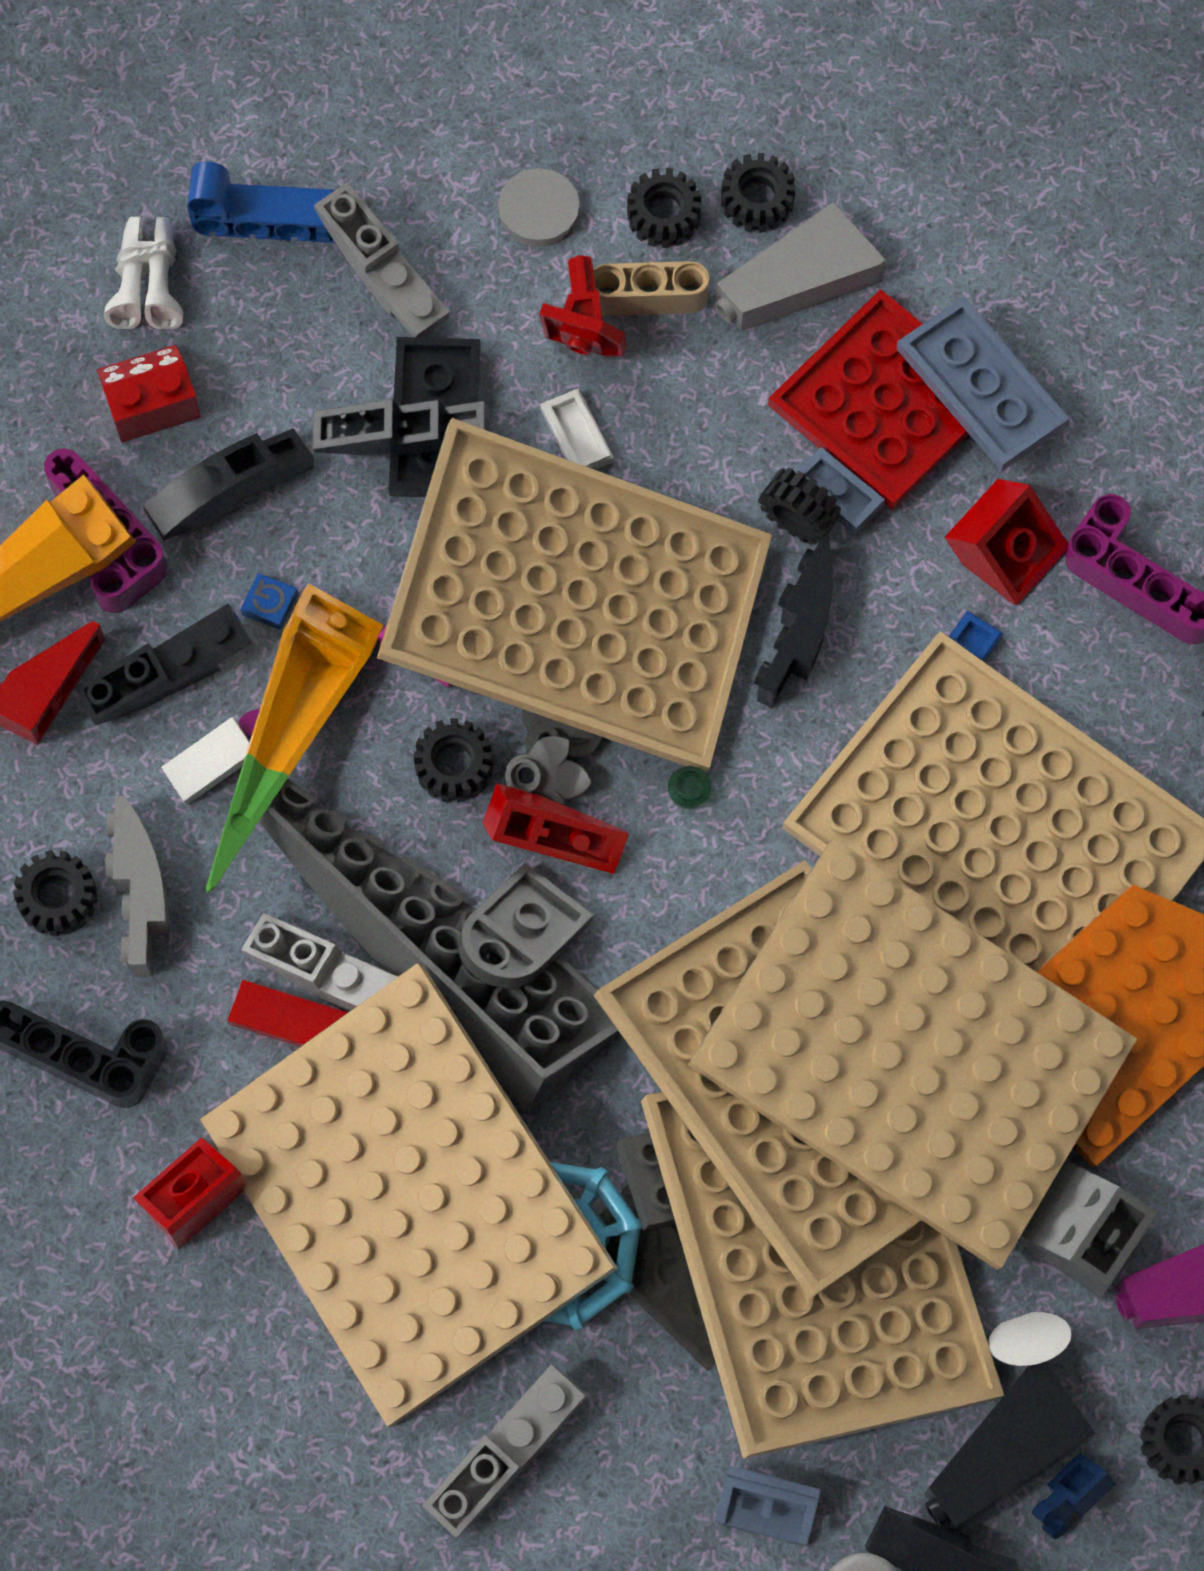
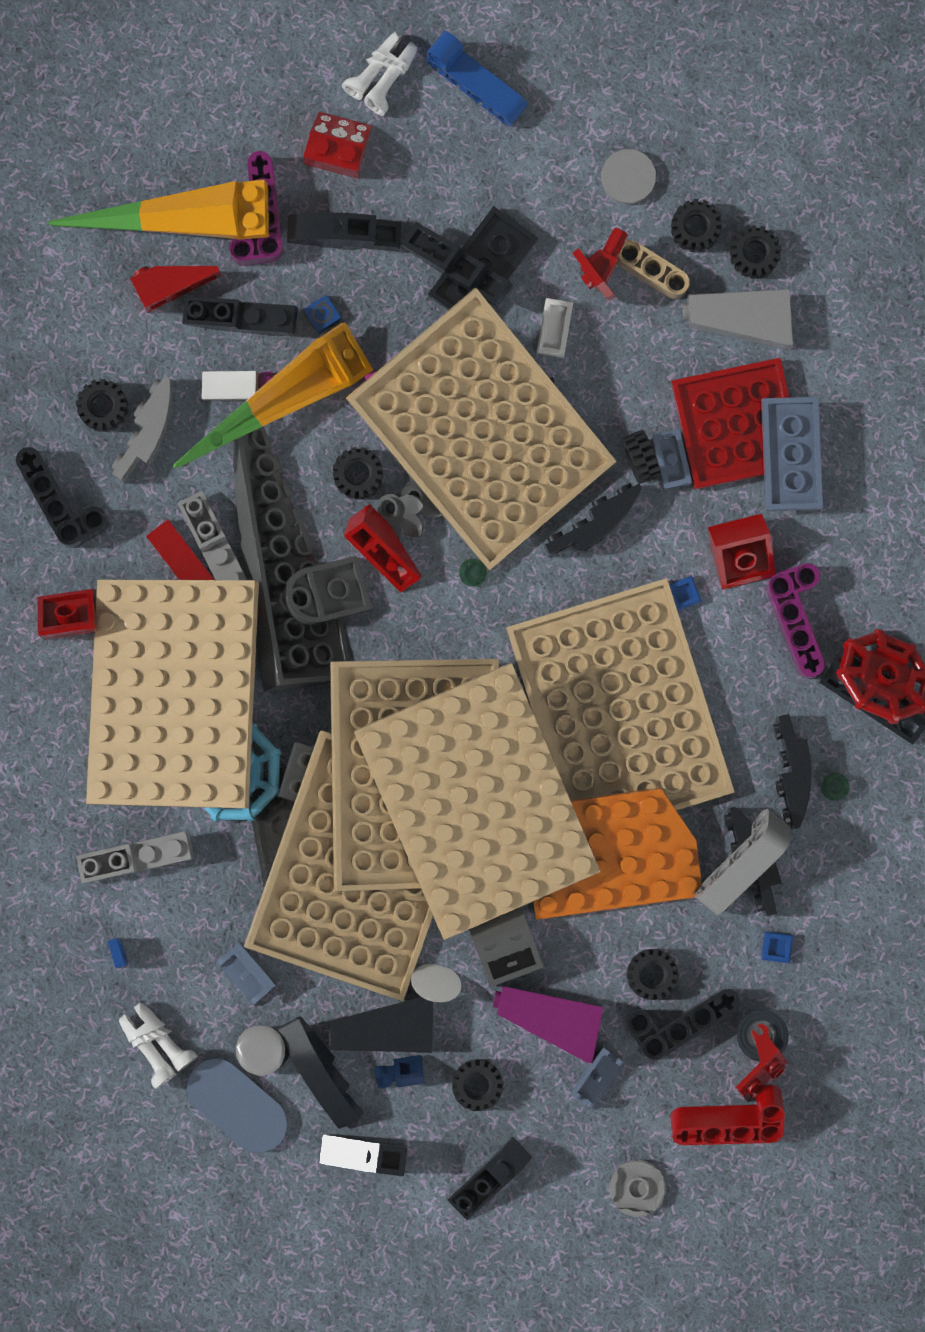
camera: 30 degrees right, 15 degrees up
(379, 263) = (514, 155): light grey slope -> none

